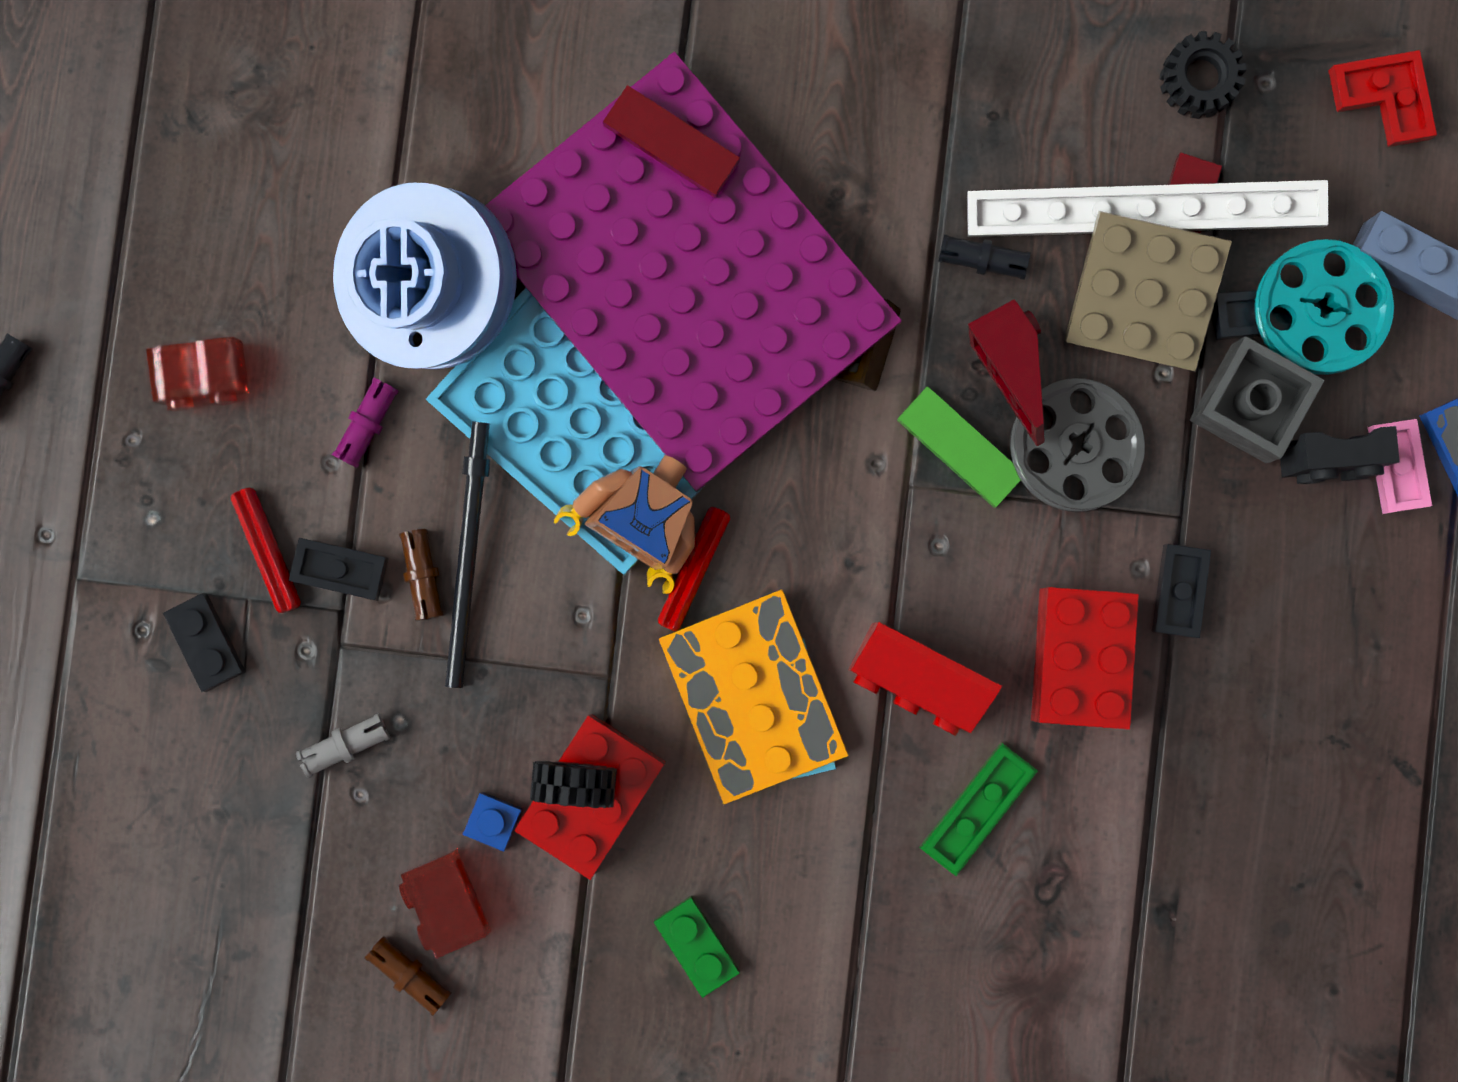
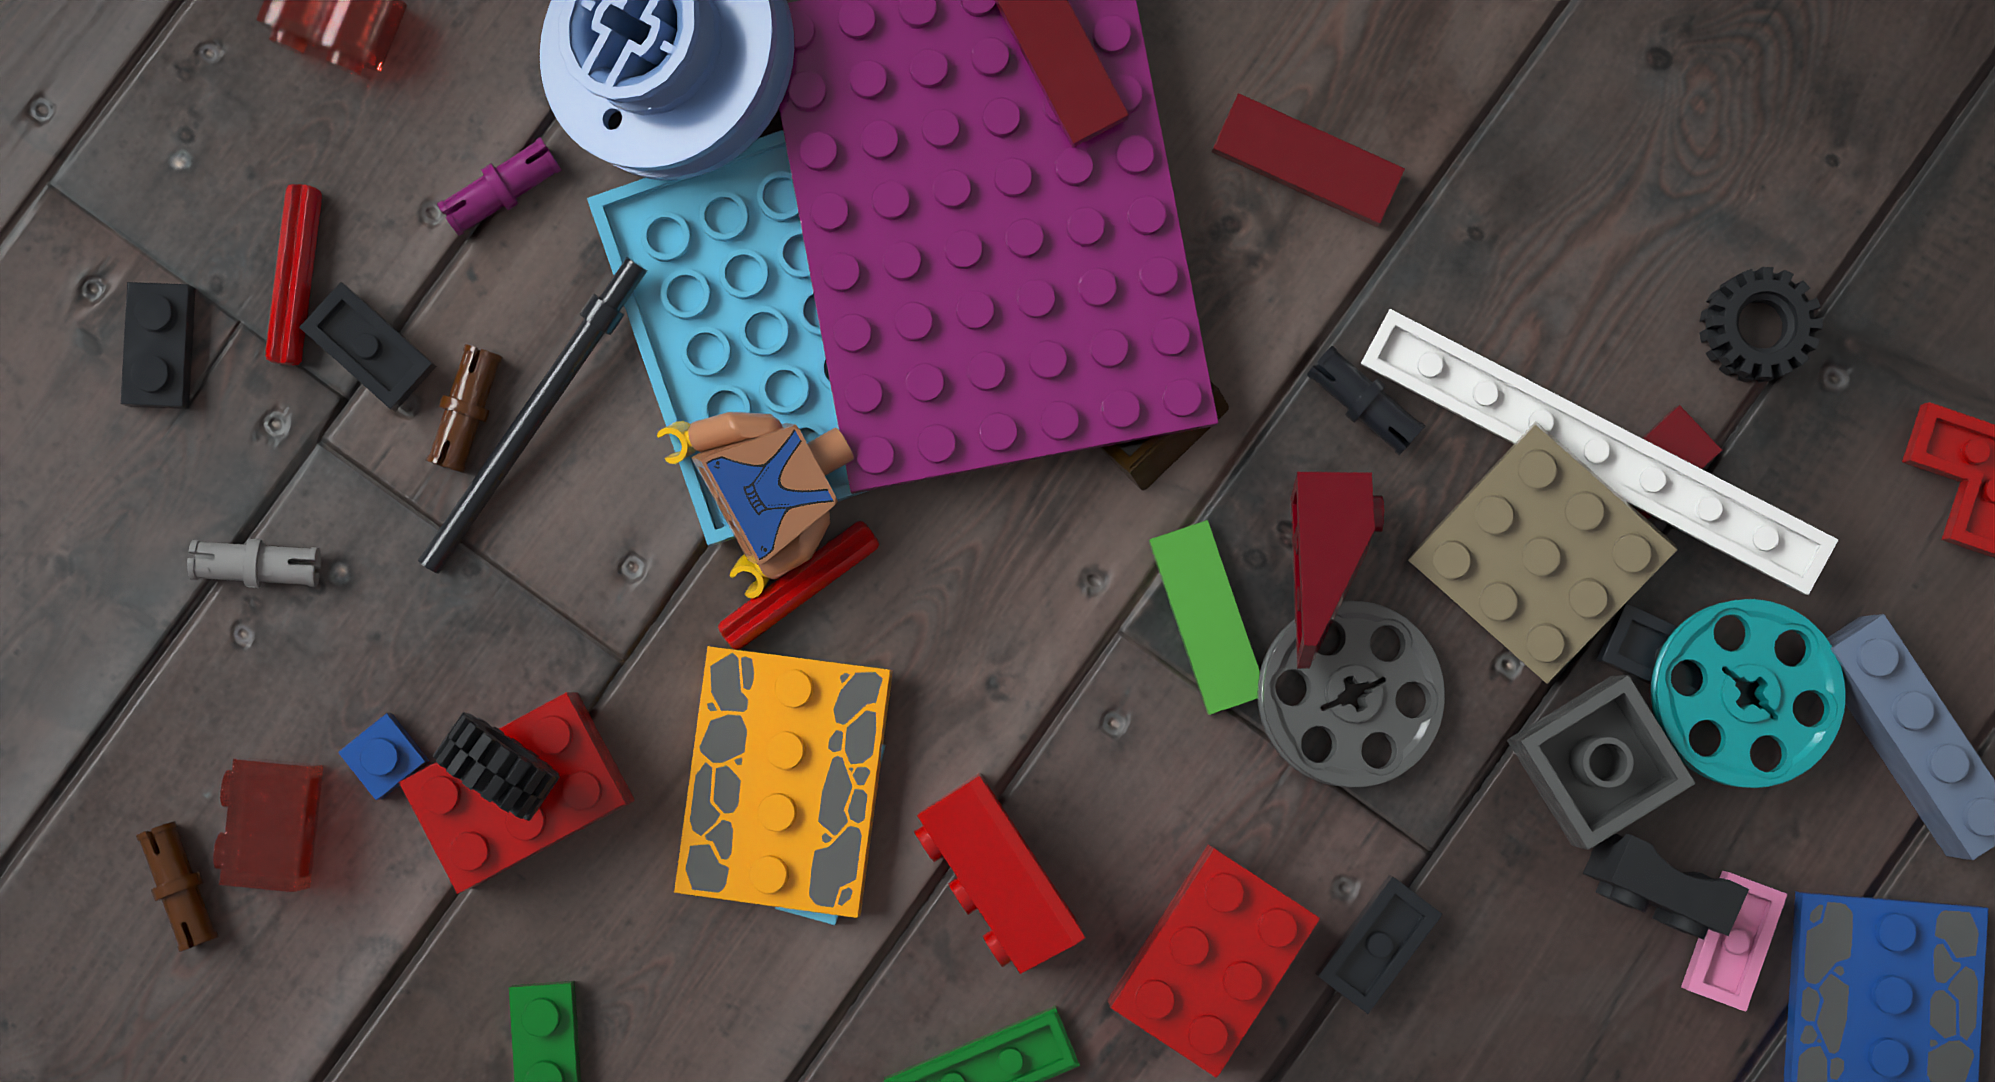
camera: 25 degrees right, 0 degrees up
(864, 127) = (1308, 160): none -> dark red tile

